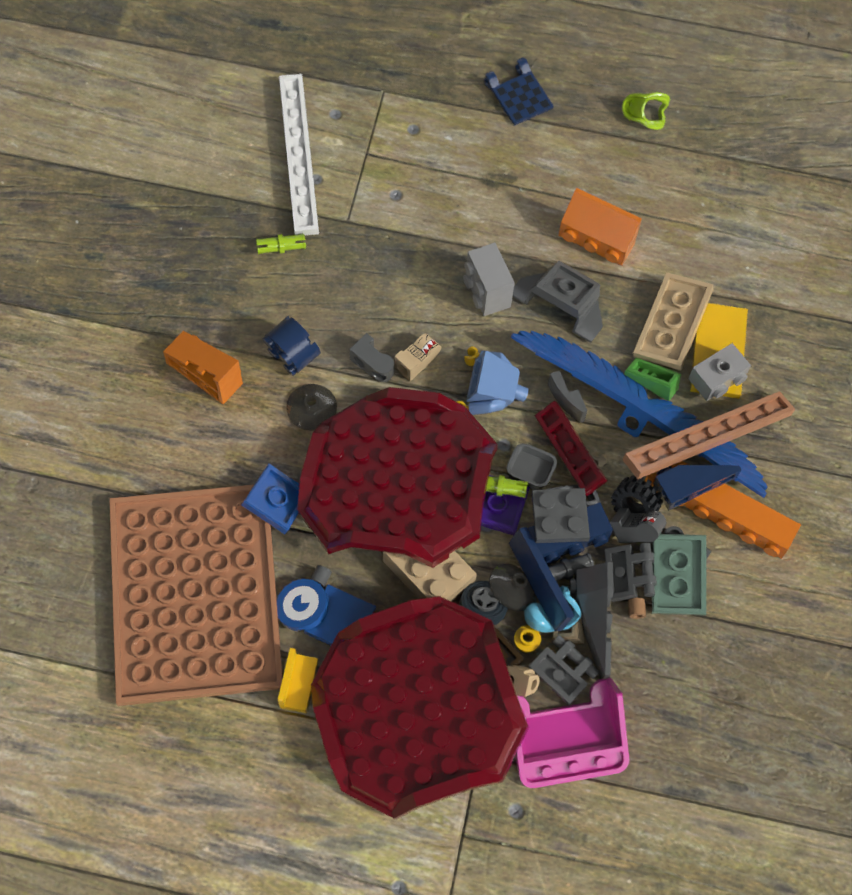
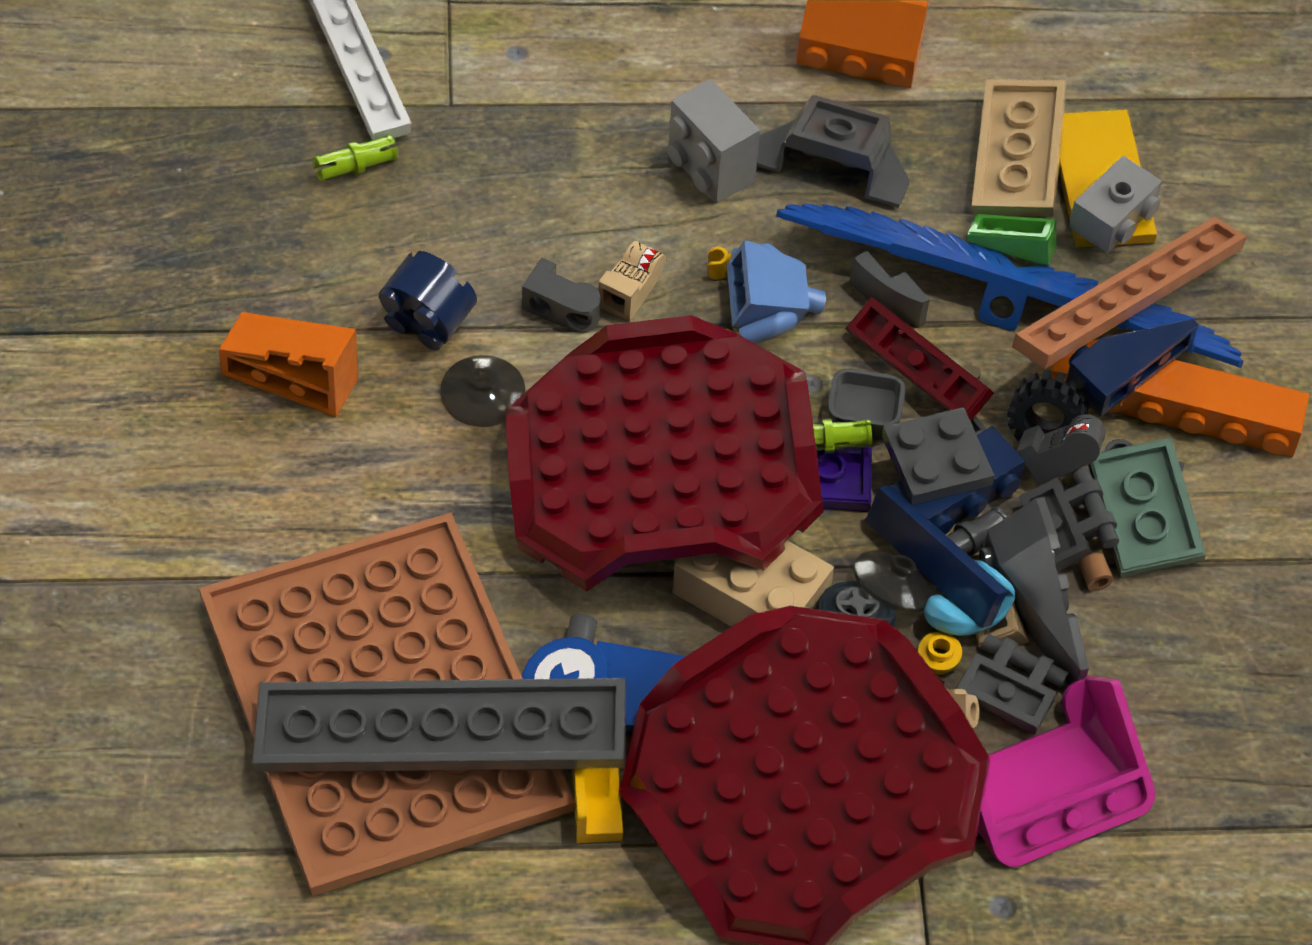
camera: 15 degrees left, 10 degrees down
(216, 622) = (440, 725): none -> dark grey plate
(274, 499) = (472, 531): blue tile -> none

